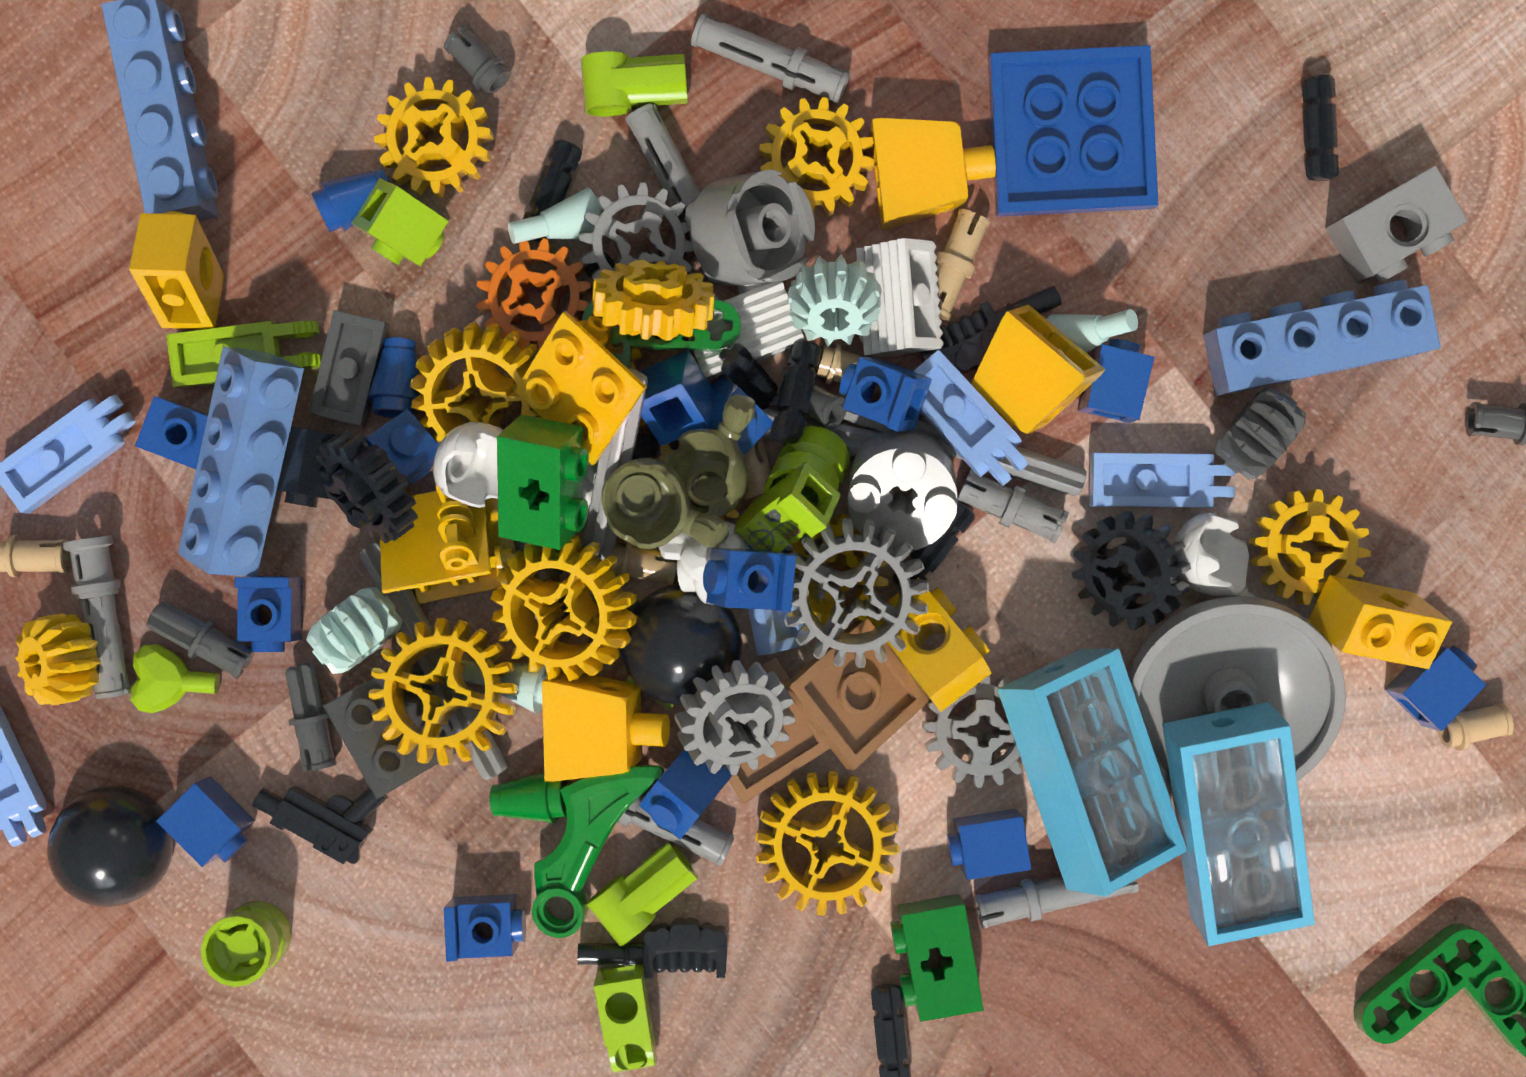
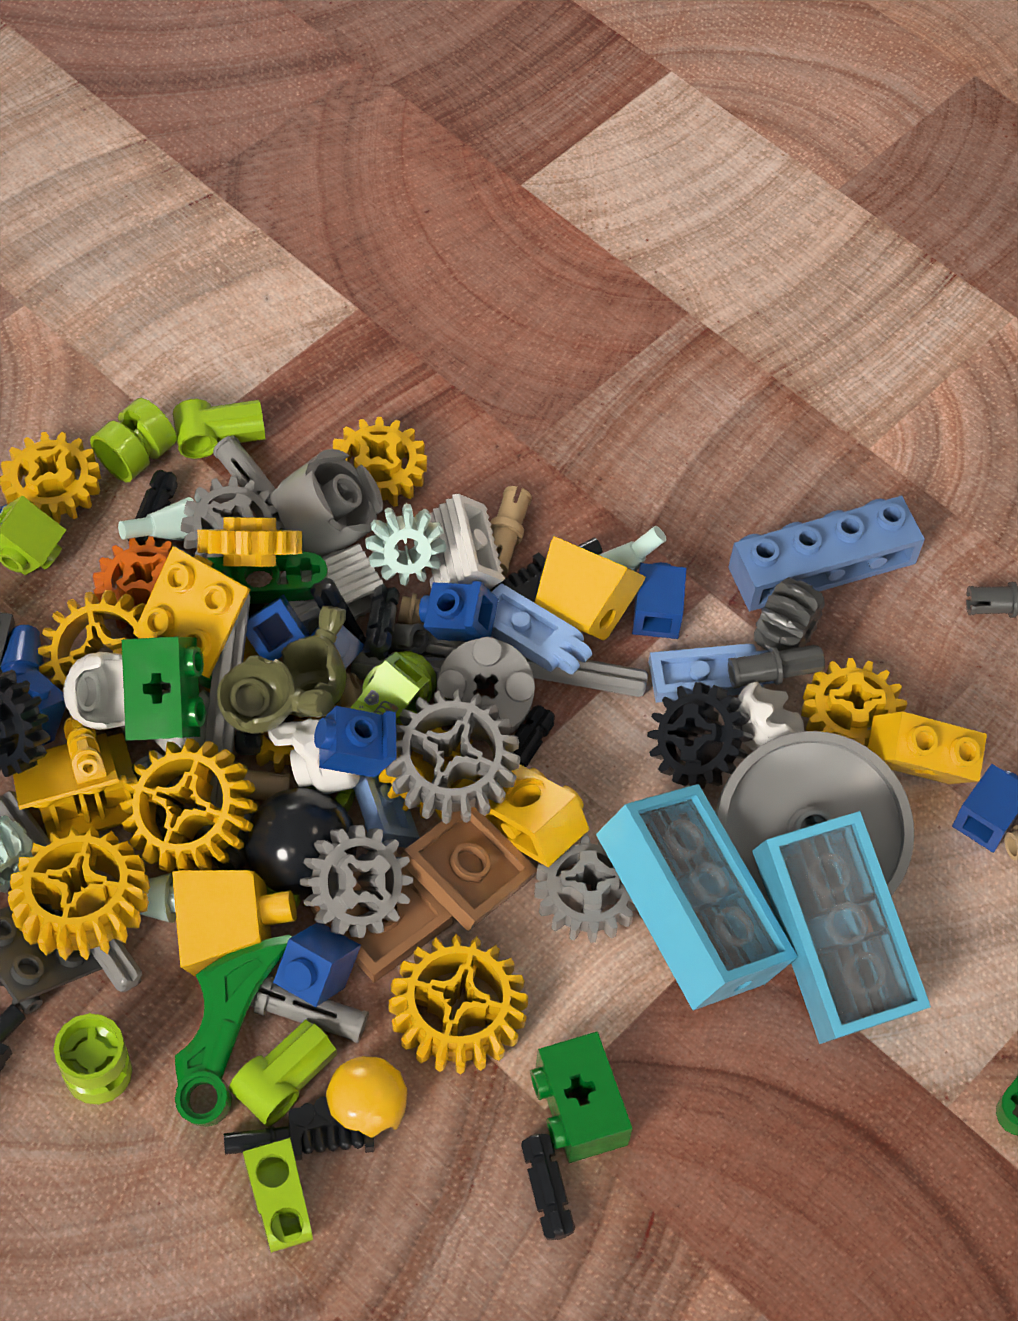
camera: 10 degrees left, 30 degrees down
(451, 863) = (93, 1058): none -> lime wheel
(482, 65) = (80, 419): dark grey pin -> none
(499, 911) = (120, 1140): blue brick -> none
(529, 799) = (167, 998): green cone -> none
(532, 97) = (128, 444): none -> lime wheel
(722, 932) = (367, 1095): none -> yellow hair
(771, 58) = (282, 391): light grey pin -> none
(923, 168) = (469, 459): yellow torso -> none
(989, 844) = (614, 987): blue brick -> none
(1013, 506) = (587, 705): light grey pin -> none
(1033, 900) = (666, 1035): light grey pin -> none
(1073, 130) = (589, 428): blue plate -> none
(1233, 495) = (775, 665): none -> dark grey axle
(1320, 128) = (791, 410): black axle -> none
(1424, 209) = (868, 465): light grey brick -> none

